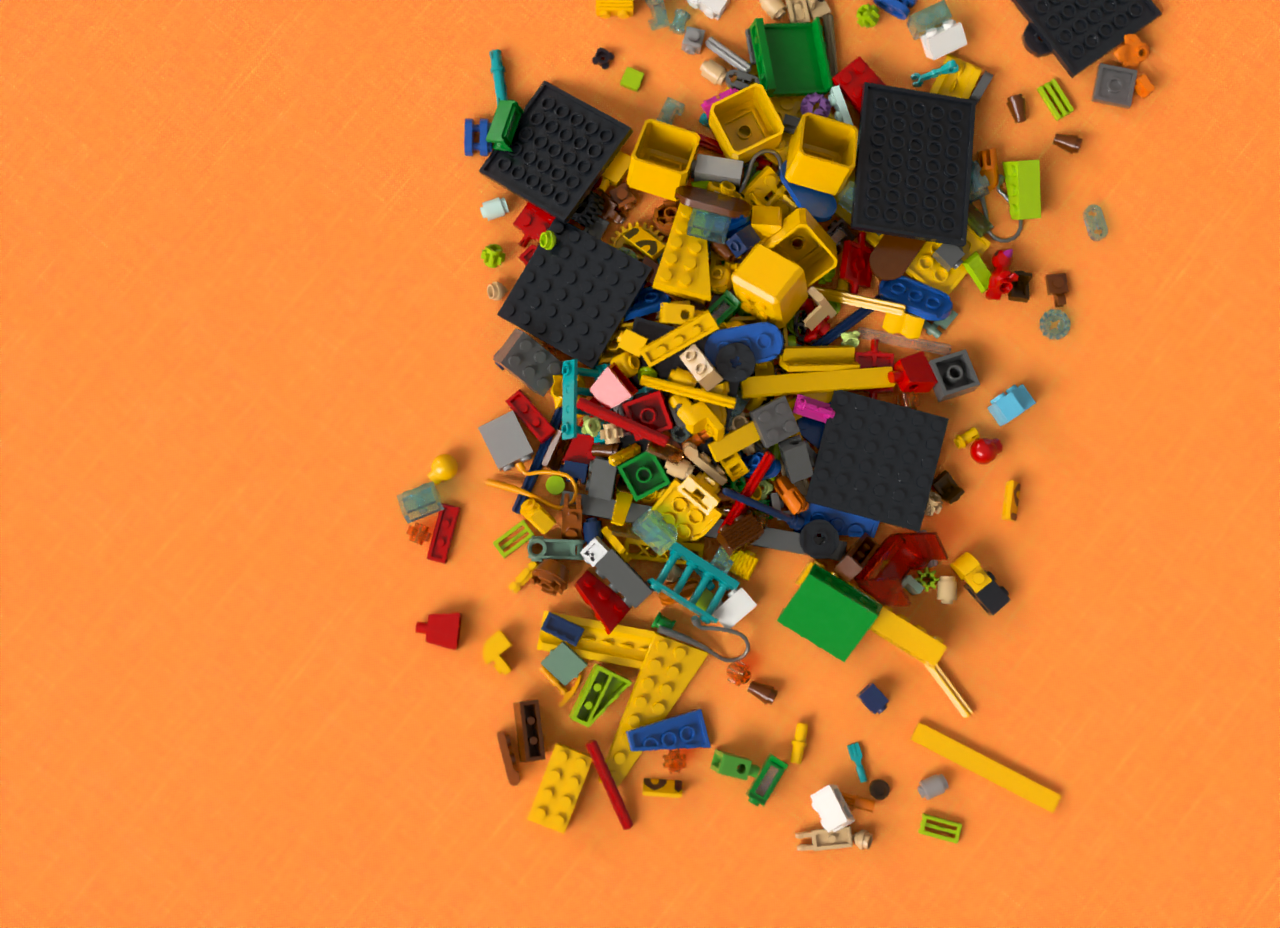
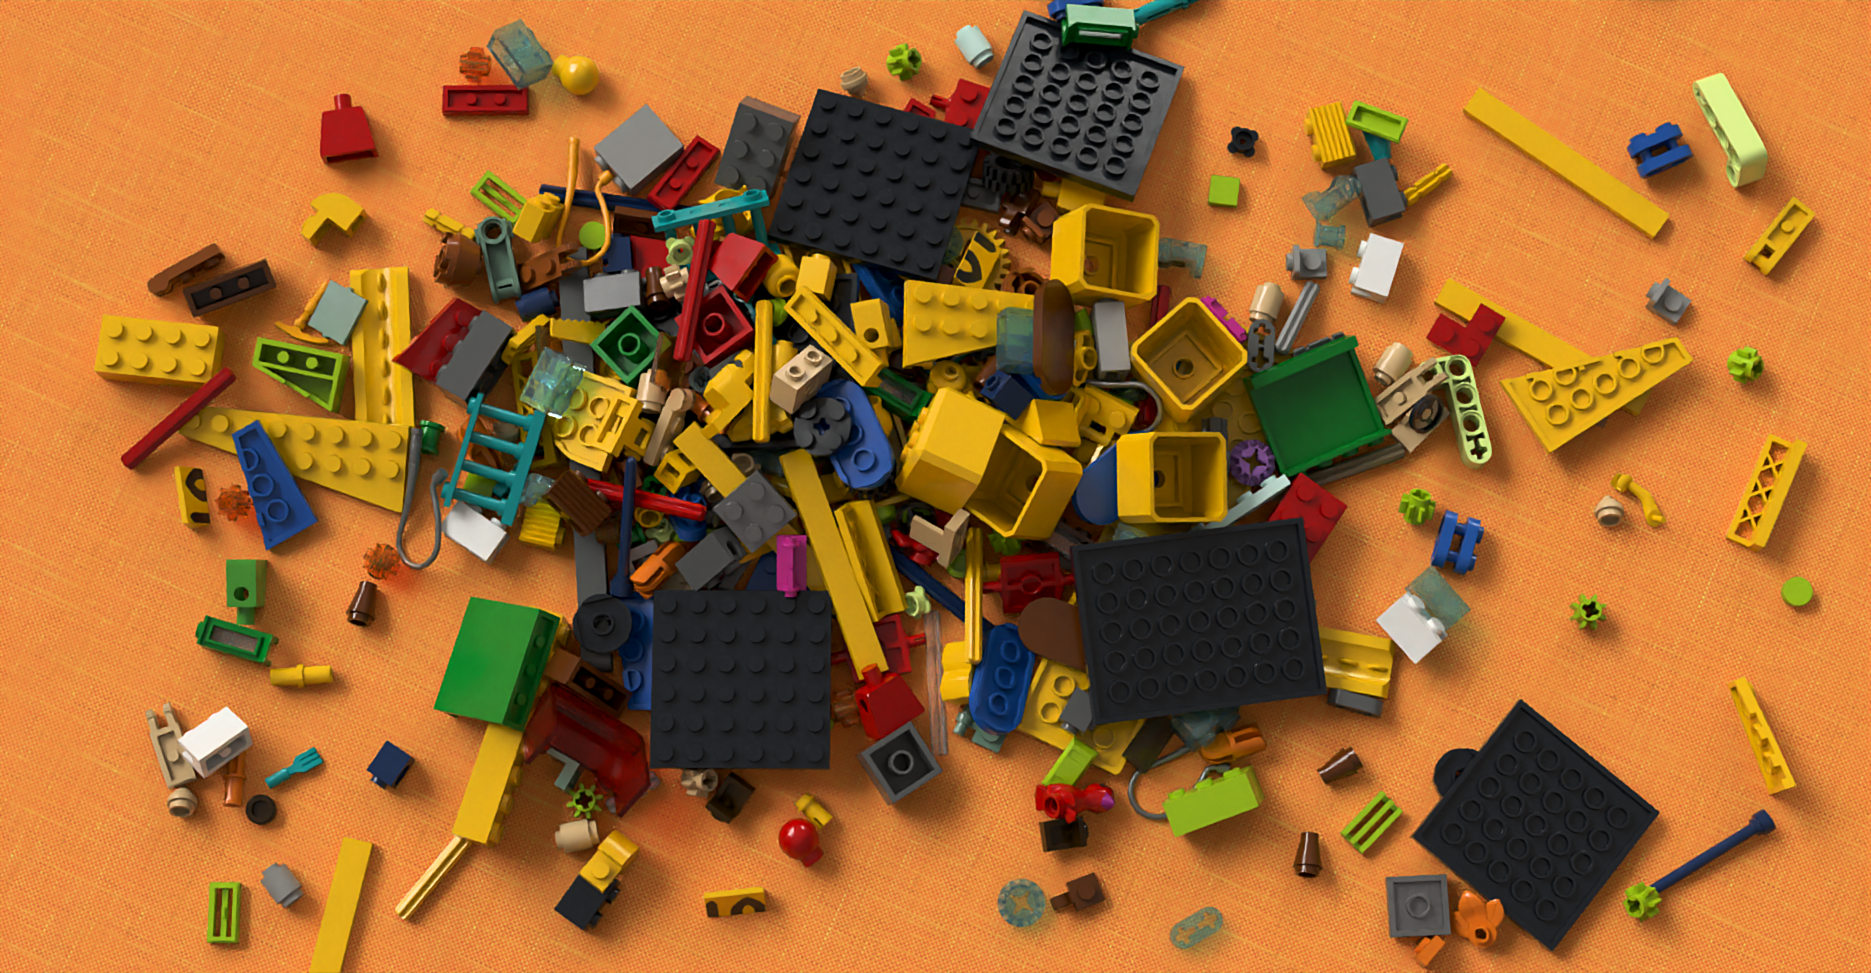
camera: 70 degrees right, 5 degrees down
(547, 240) = (940, 126): lime plate -> none
(562, 629) = (385, 295): dark blue plate -> none
(594, 551) = (508, 309): bracket -> none
(624, 454) = (653, 312): yellow axle -> none
(948, 68) = (1366, 640): teal piece -> none
(1009, 406) = (878, 863): medium azure brick -> none

